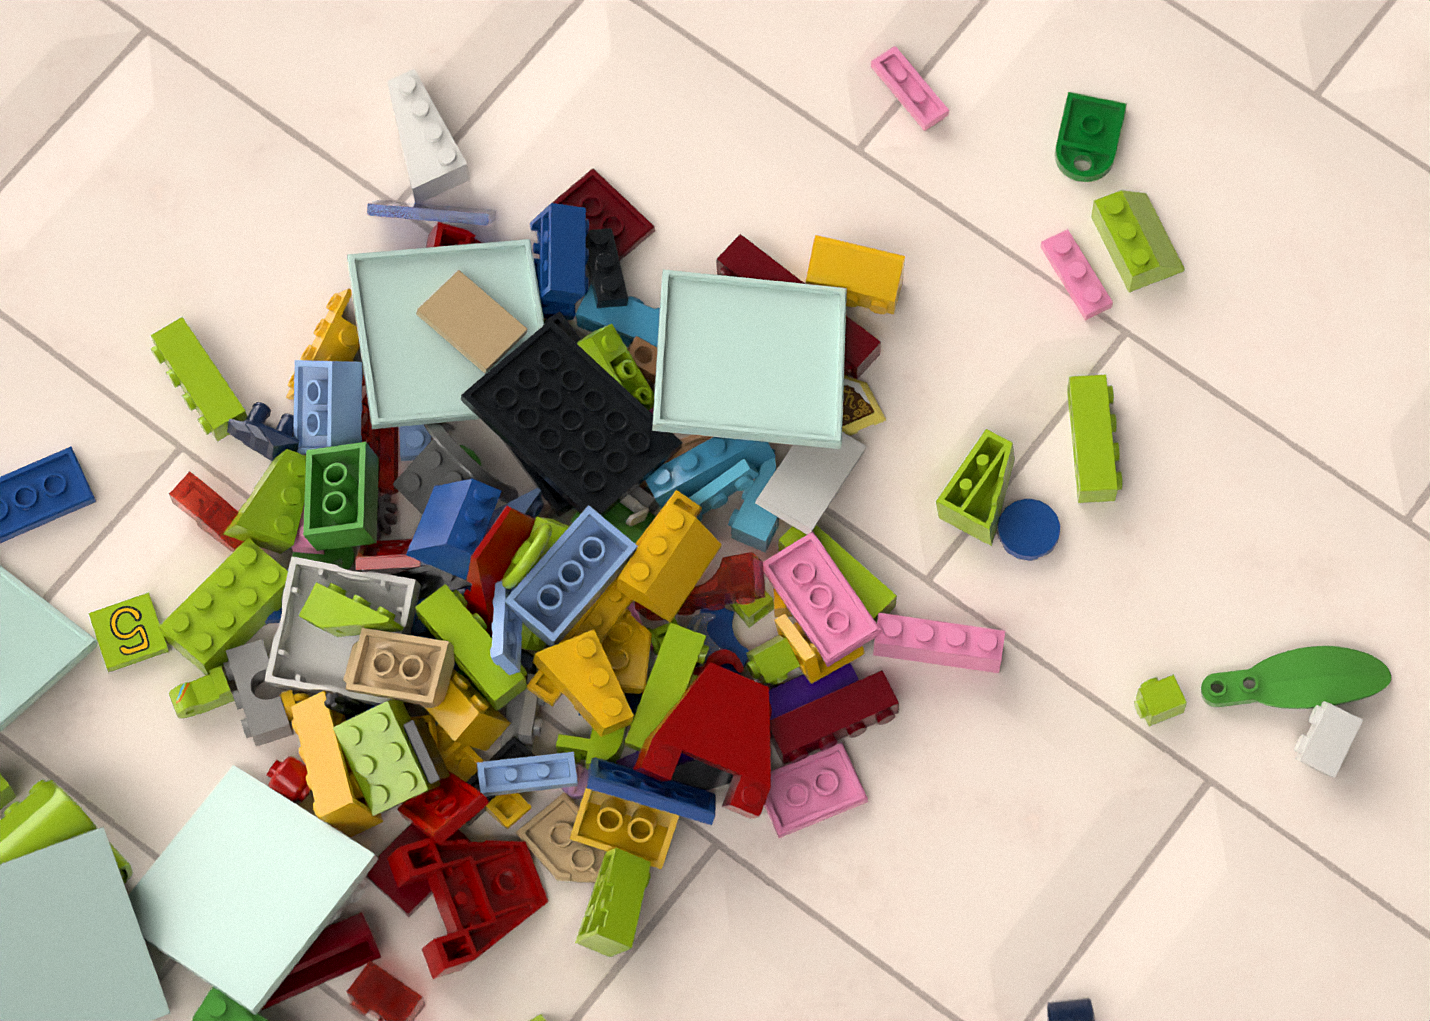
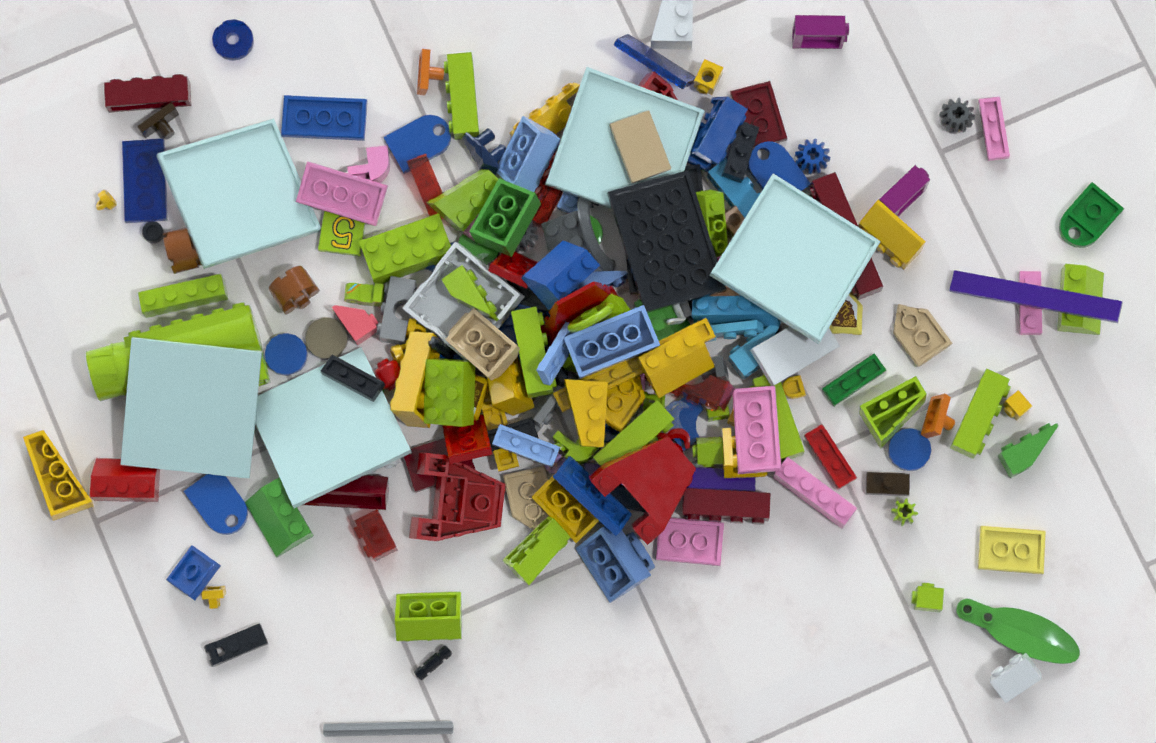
camera: 30 degrees right, 10 degrees up
(101, 733) = (293, 289): none -> dark orange brick
(102, 579) = (342, 193): none -> bright pink tile
(130, 528) = (377, 167): none -> bright pink brick
(135, 373) = (426, 72): none -> orange tile
(135, 826) = (286, 354): none -> blue tile
(167, 463) = (418, 139): none -> blue tile
(179, 778) = (326, 338): none -> dark tan tile
(210, 736) = (356, 322): none -> coral slope
(244, 807) = (352, 378): none -> black tile
(287, 746) = (397, 353): none -> yellow tile
(426, 750) = (473, 401): black tile -> none
(510, 190) = (708, 69): none -> yellow brick
(623, 76) = (819, 32): none -> magenta window
(656, 255) = (778, 163): none -> blue tile
(709, 226) = (820, 156): none -> blue gear
(724, 868) = (613, 563): none -> medium blue slope
(729, 547) = (719, 371): none -> dark grey tile
(753, 835) = (641, 551): none -> medium blue tile
(838, 527) = (794, 387): none -> yellow tile
(844, 207) = (906, 190): none -> magenta window
(845, 100) = (964, 112): none -> dark grey gear
(908, 479) = (854, 379): none -> green tile
(932, 589) = (830, 456): none -> red plate
(959, 381) = (919, 334): none -> tan tile
(1025, 586) = (887, 484): none -> dark brown tile
(1039, 469) = (936, 416): none -> orange tile
(1061, 614) = (899, 515): none -> lime gear
(1080, 257) = (1036, 296): none -> dark purple tile
(1133, 405) = (1016, 405): none -> yellow plate
(1176, 461) = (1022, 455): none -> bright green slope
(1229, 587) = (1011, 550): none -> light yellow tile

